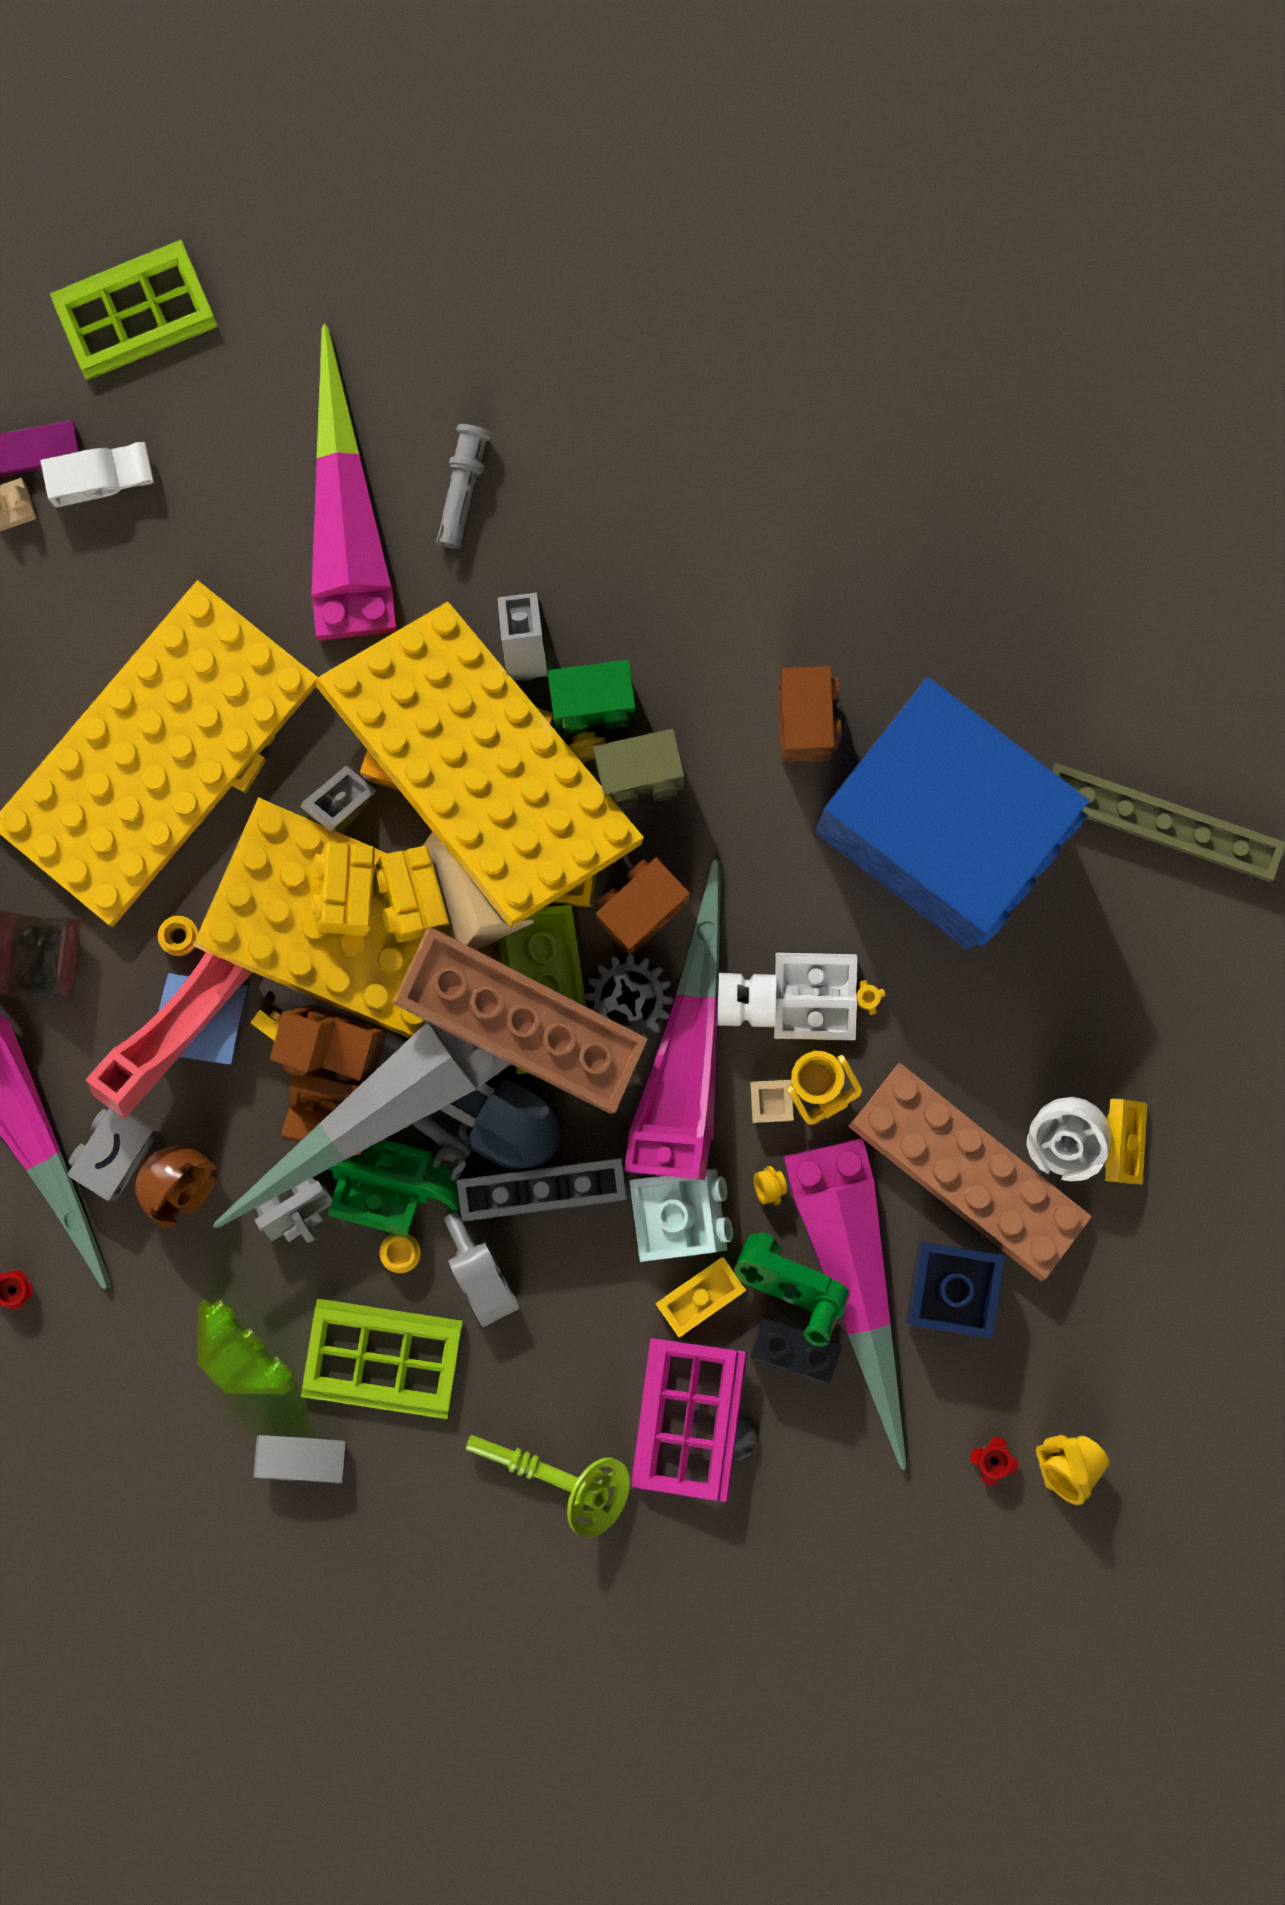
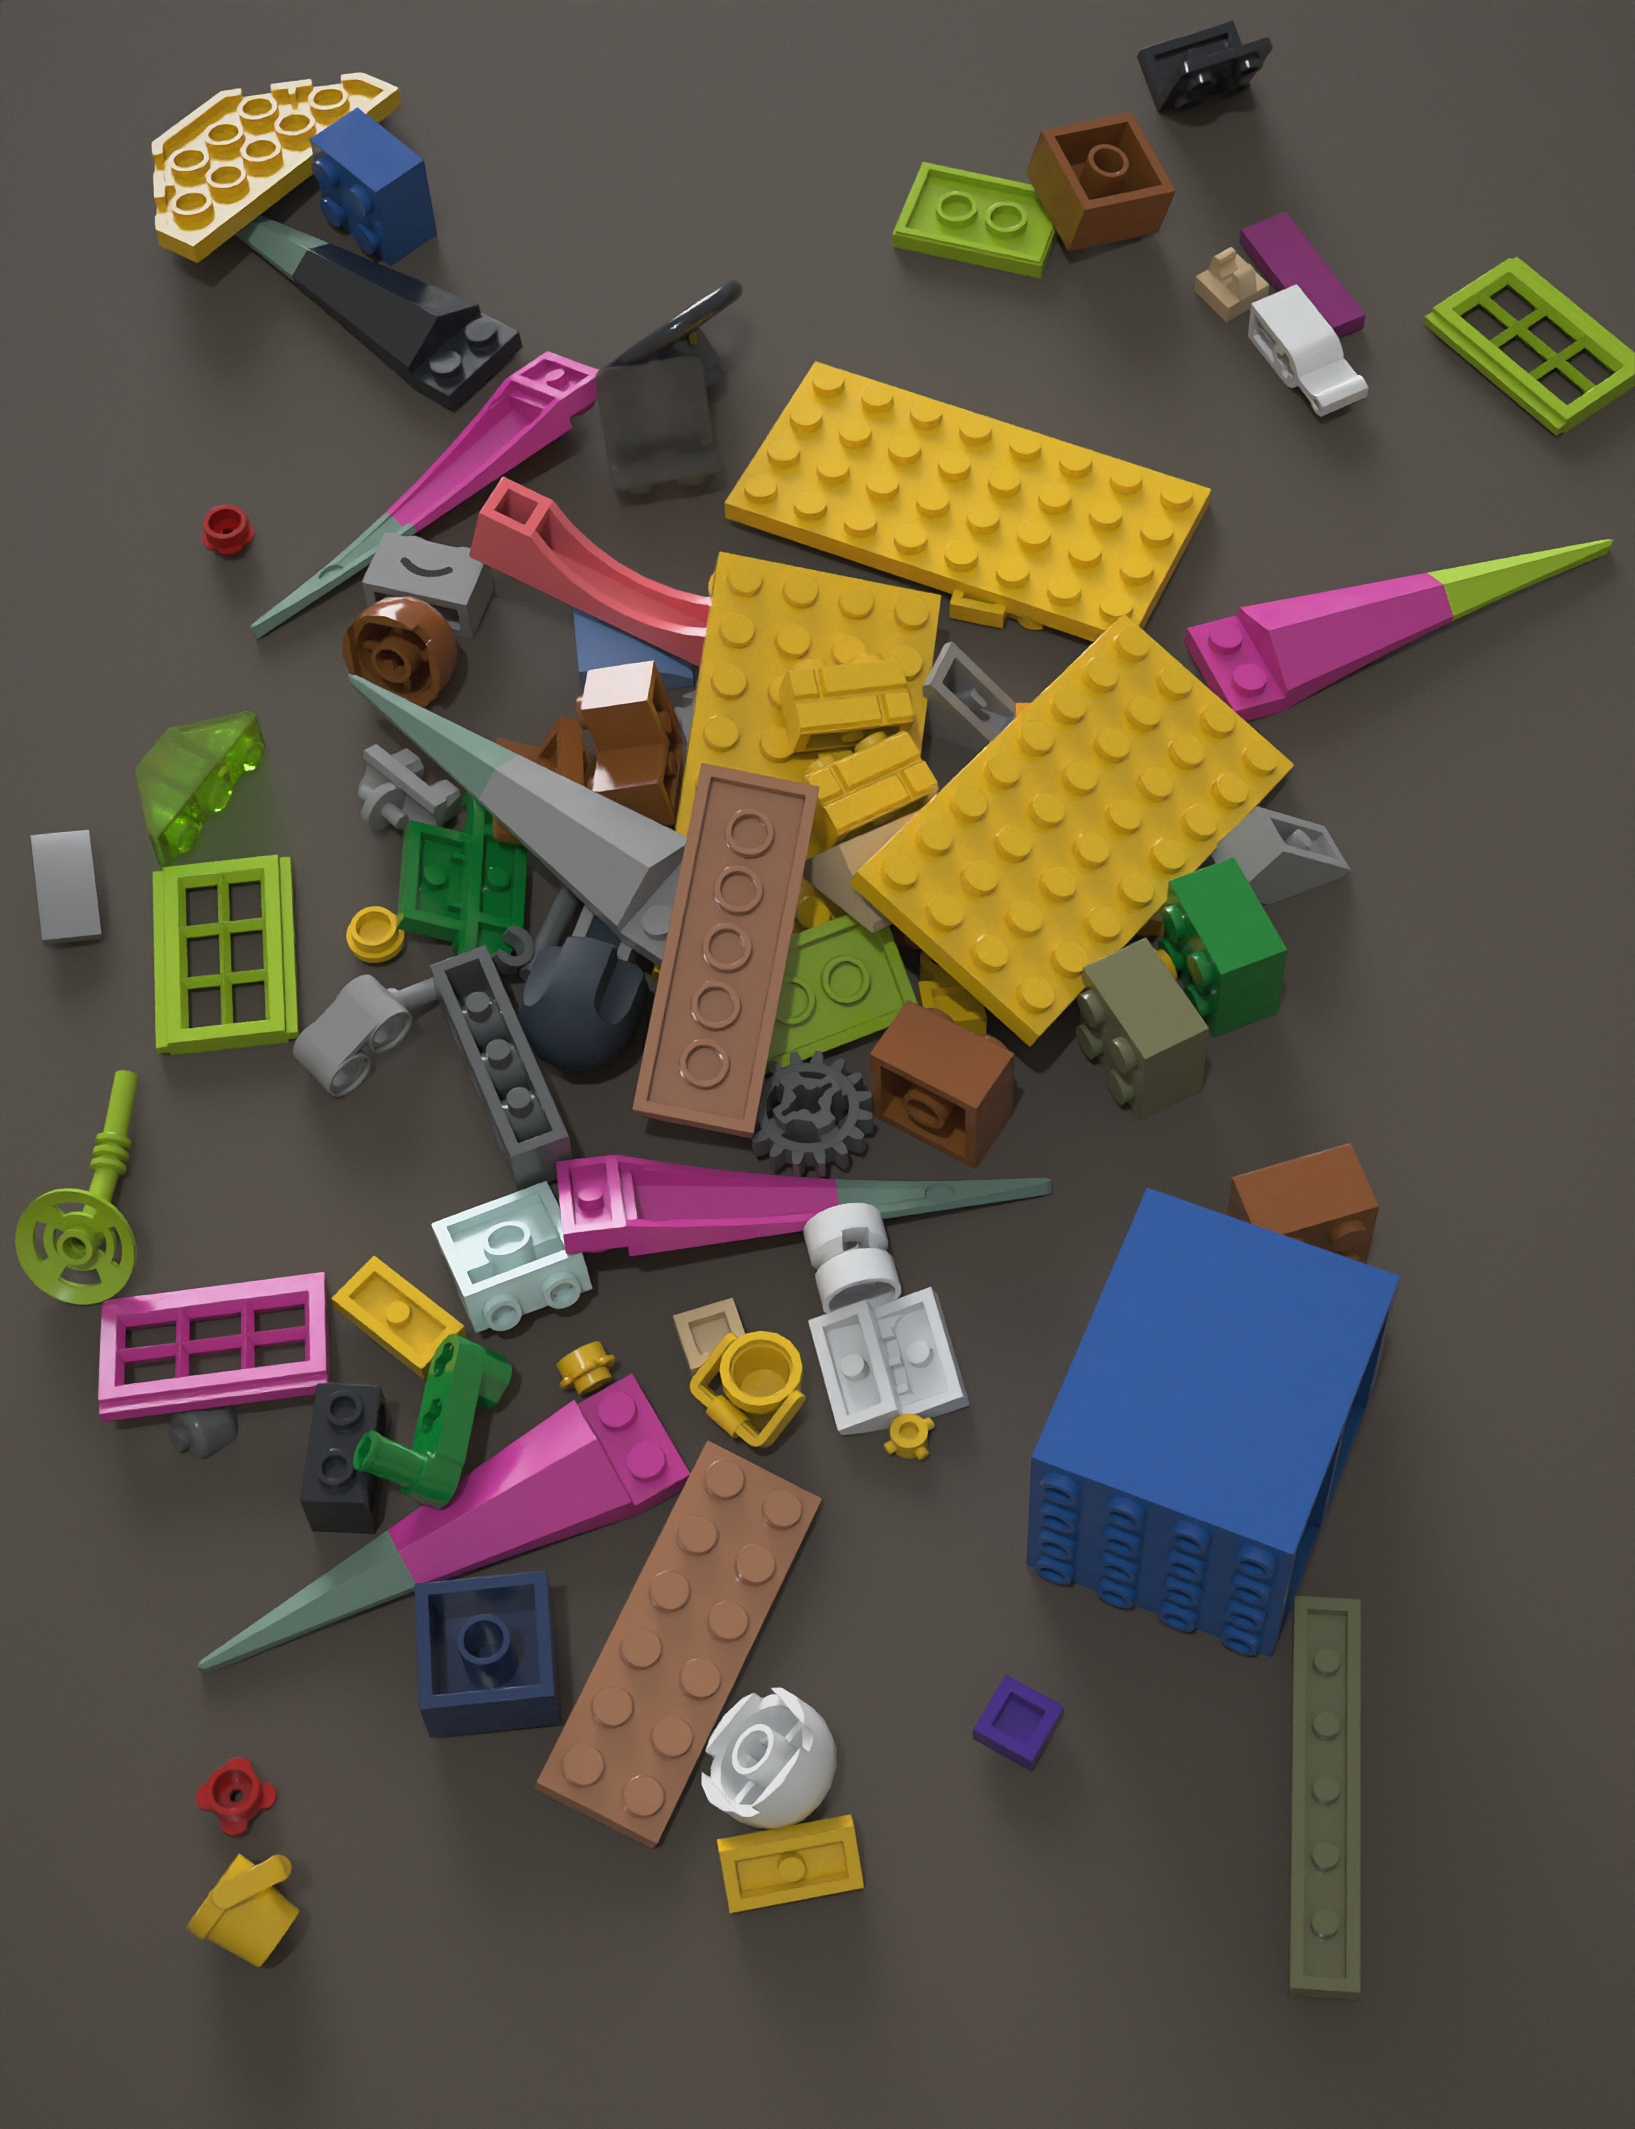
camera: 75 degrees right, 25 degrees down
(465, 468) = (1488, 738): light grey pin -> none
(1074, 985) = (1018, 1722): none -> dark purple plate

